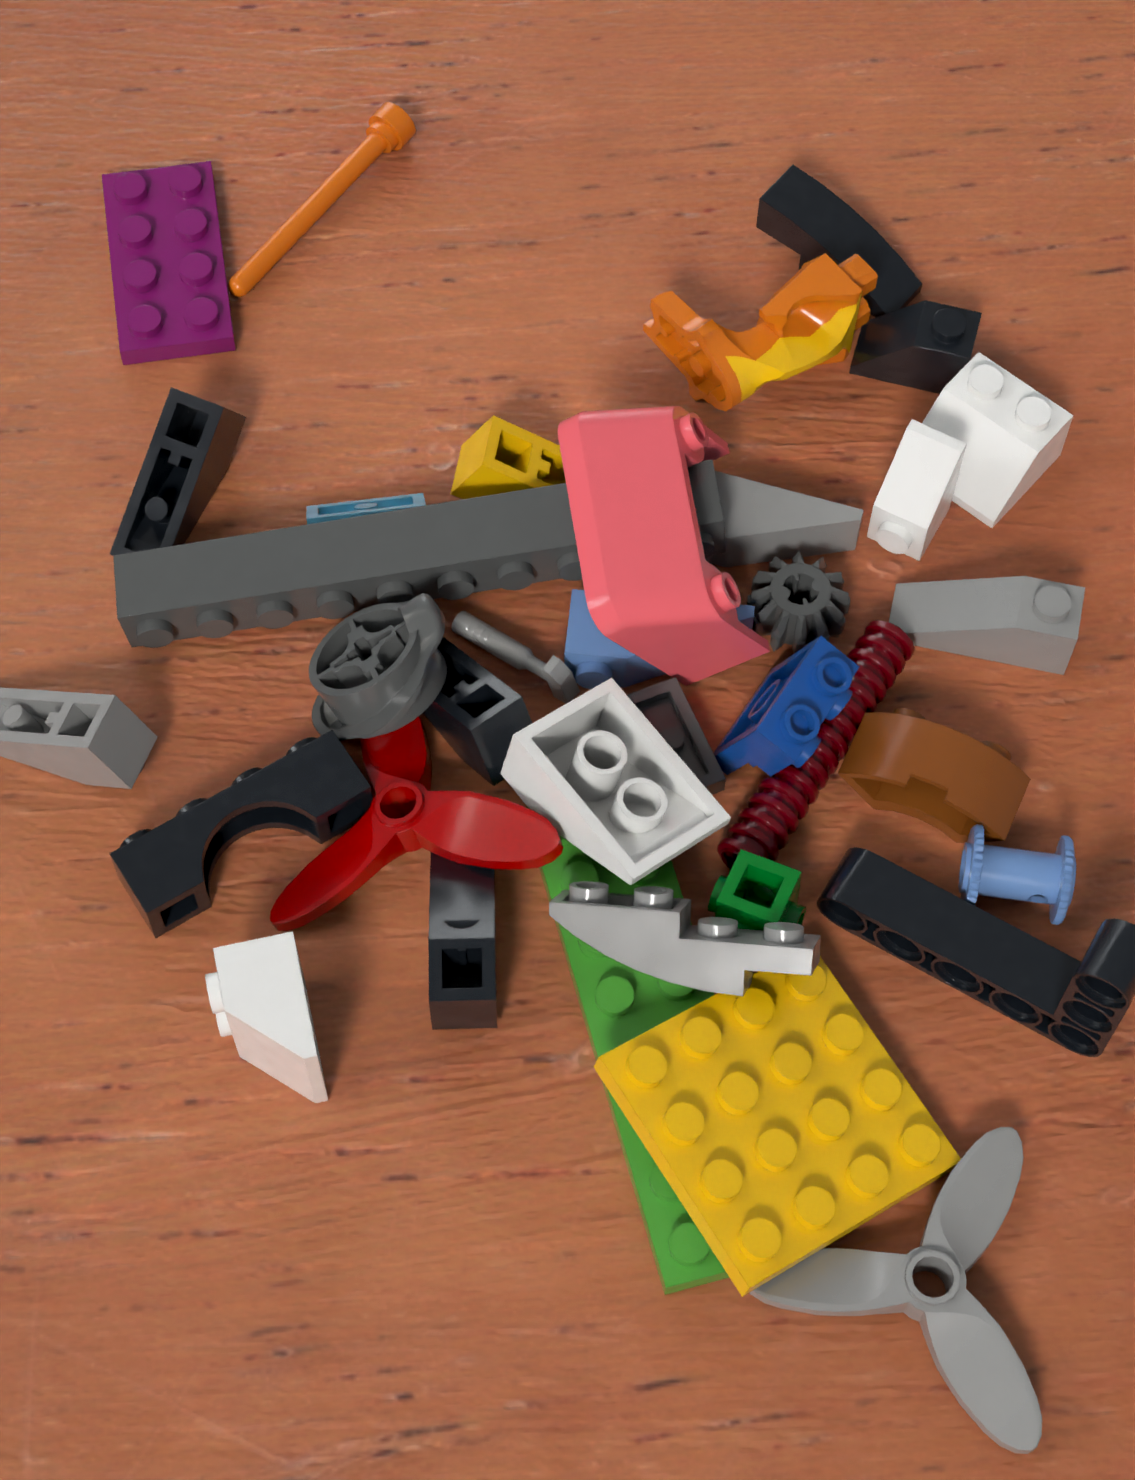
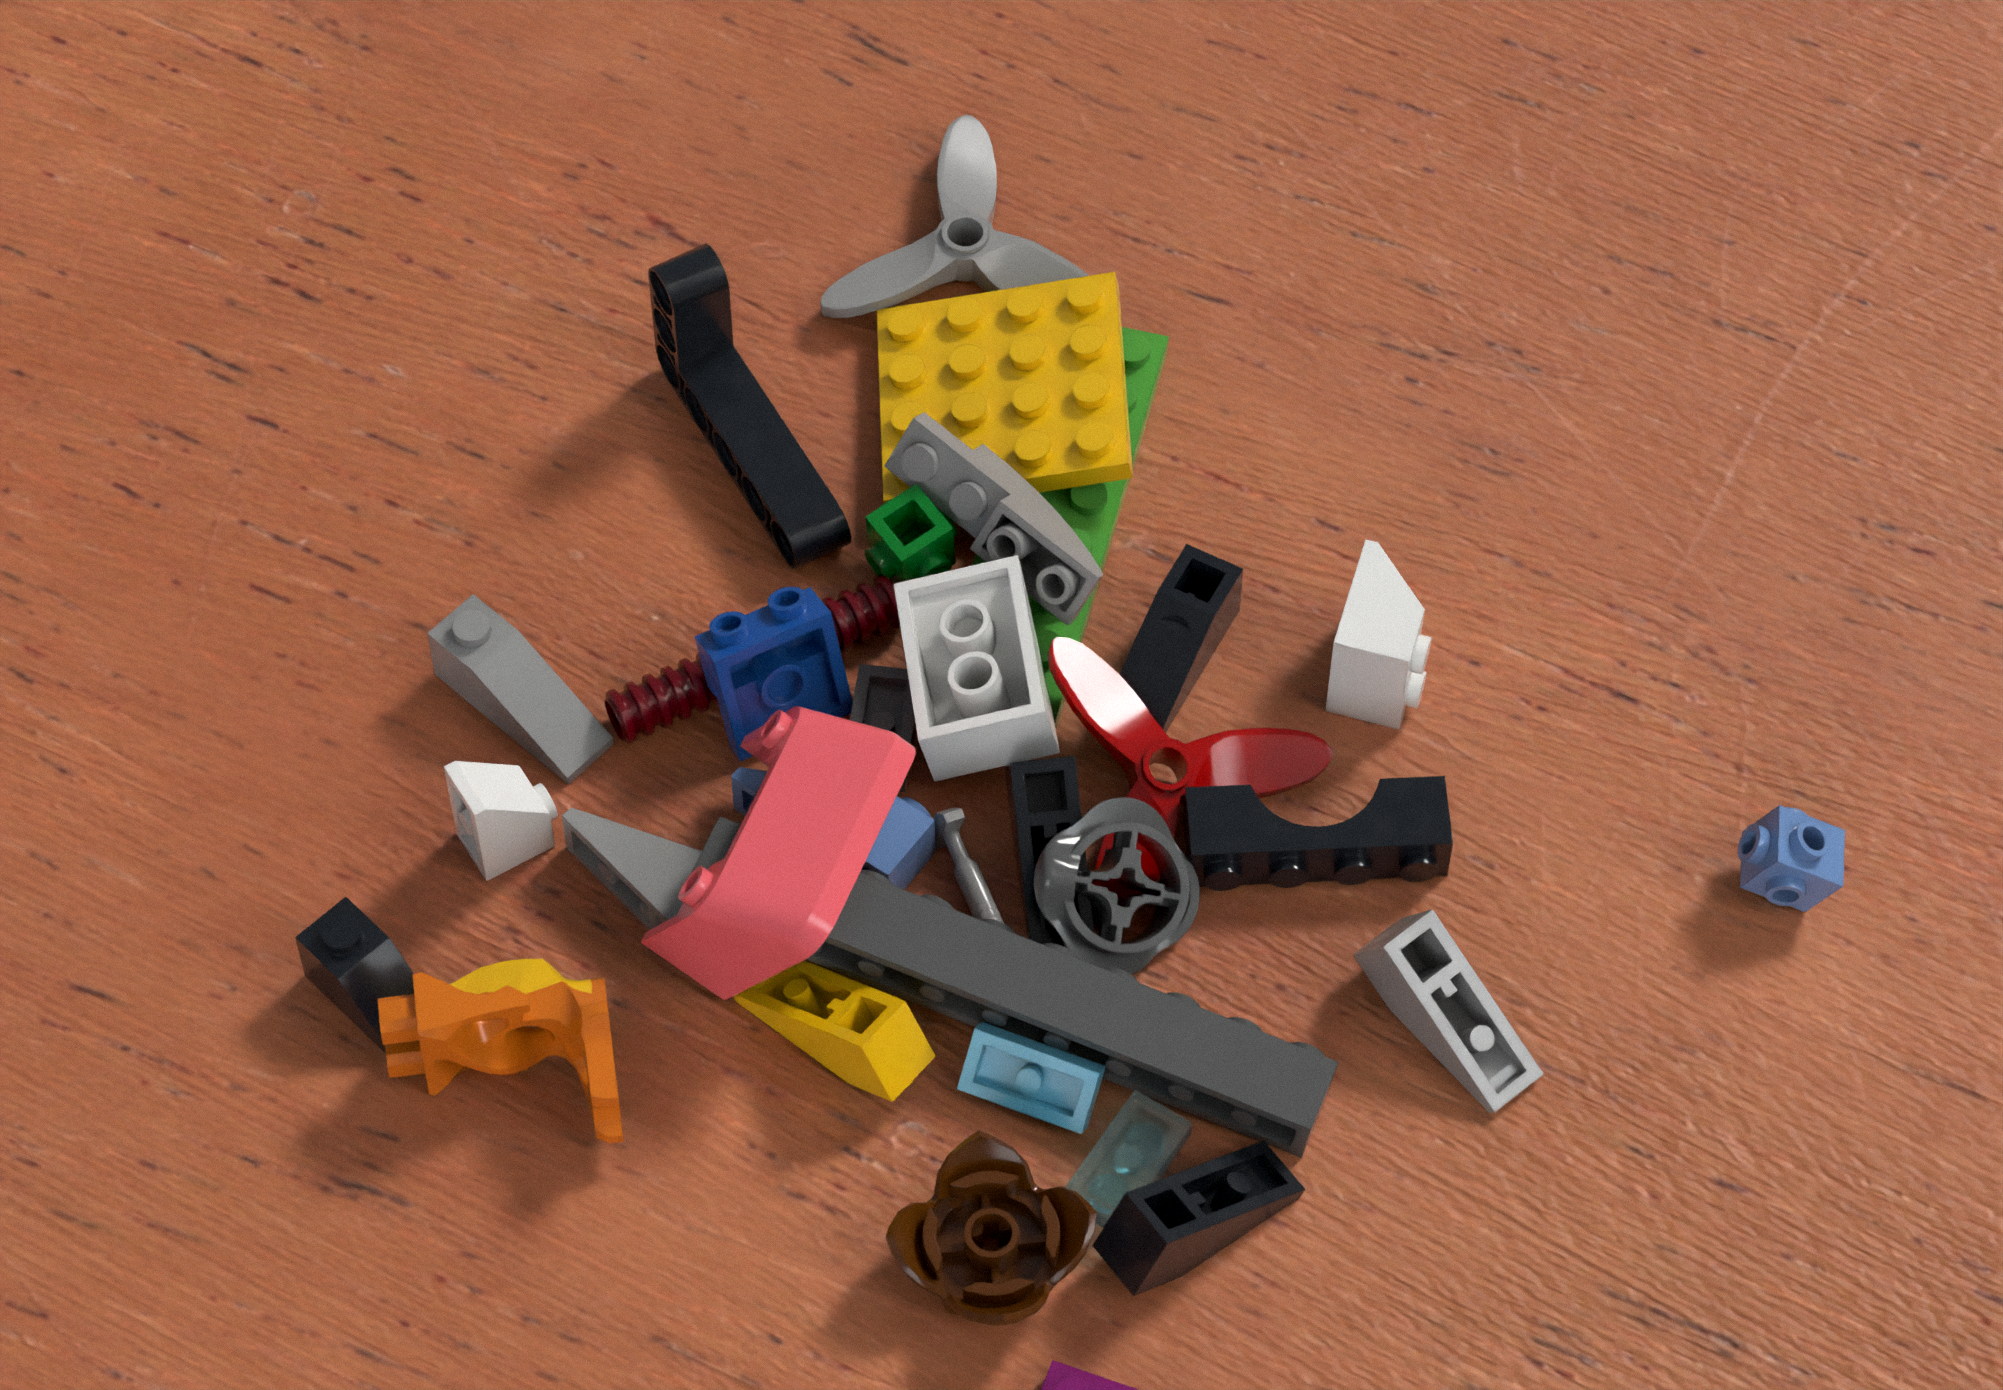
camera: 150 degrees left, 5 degrees down
(256, 487) = (1130, 1153): none -> clear light blue plate
(299, 350) = (985, 1194): none -> reddish brown brick
(783, 588) = (678, 786): dark grey gear -> none
(818, 222) = (357, 1134): black slope -> none
(934, 774) = (673, 570): dark orange brick -> none
(1008, 435) = (382, 847): white slope -> none
(1018, 873) = (668, 468): medium blue hose -> none

